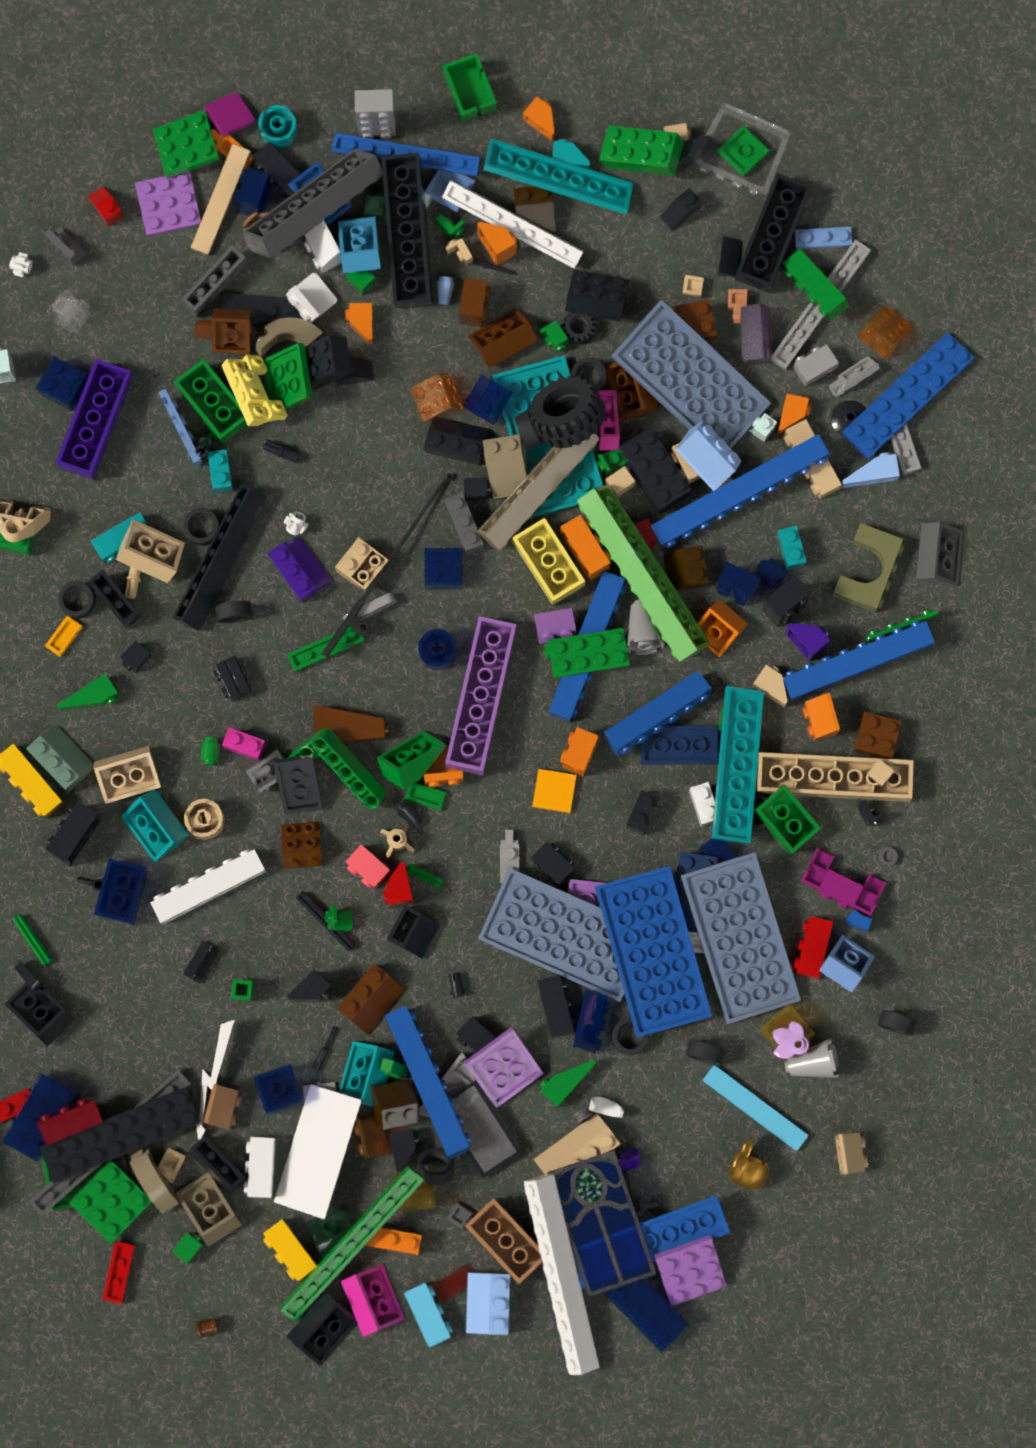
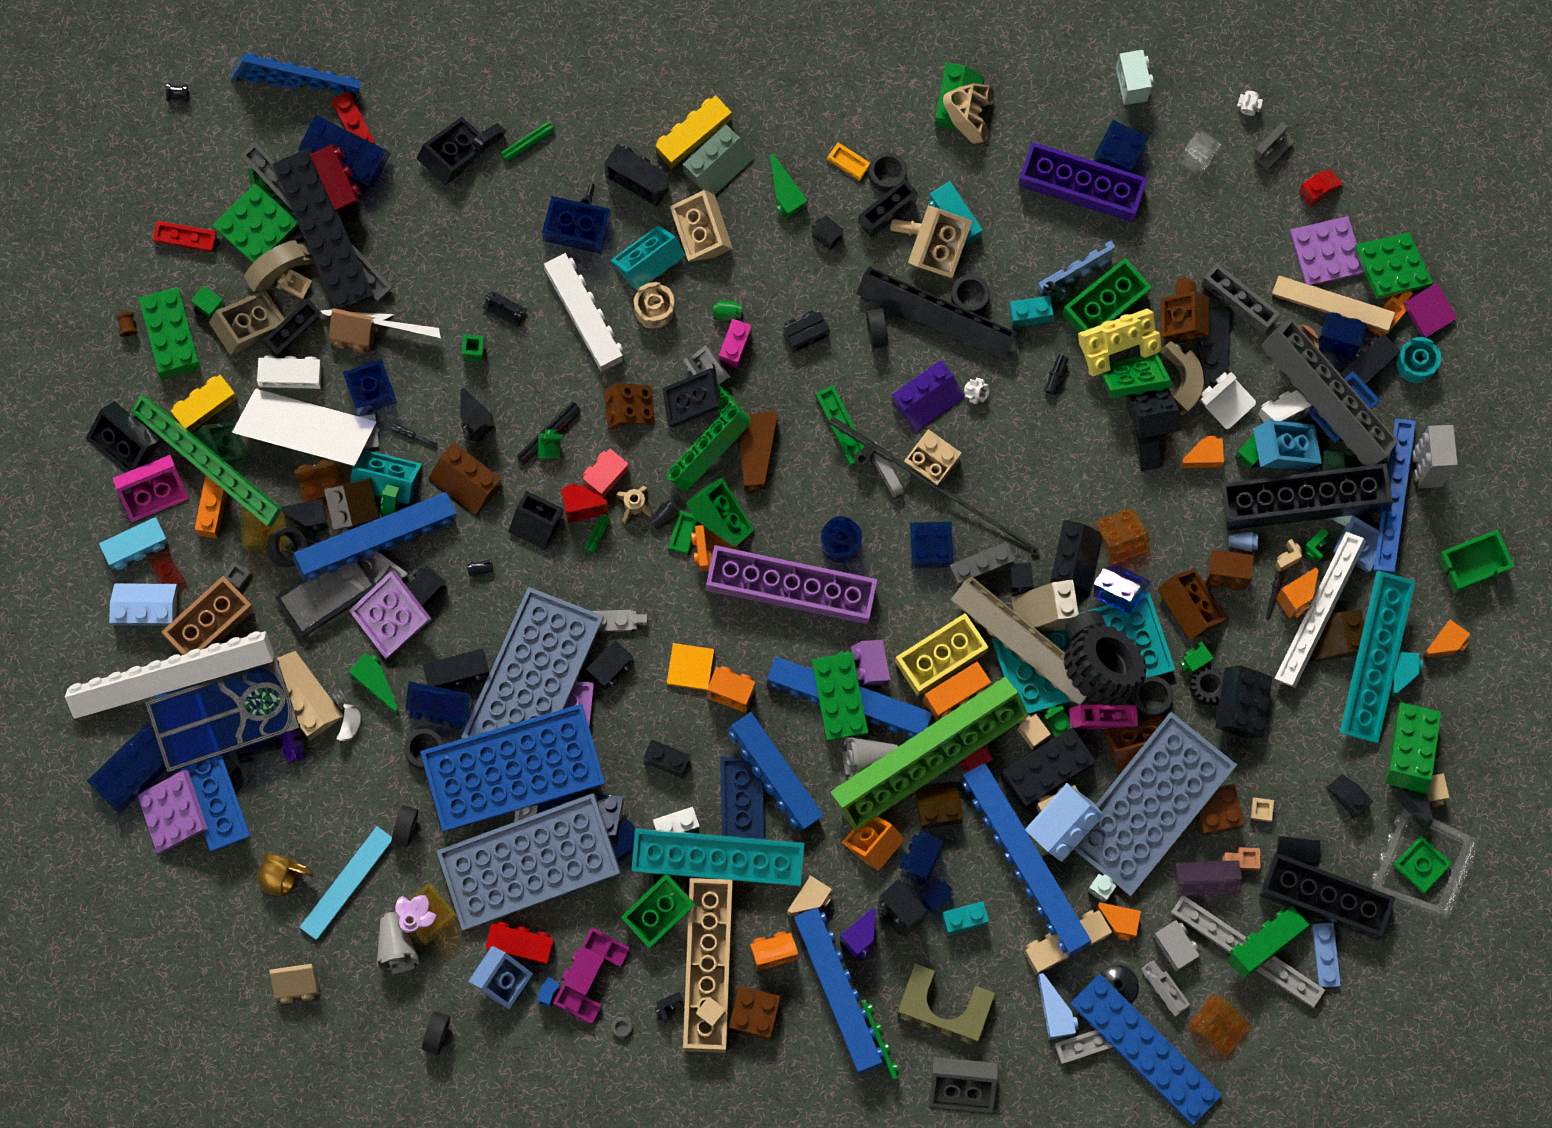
camera: 85 degrees right, 5 degrees down
(217, 1284) = (169, 333): none -> green brick

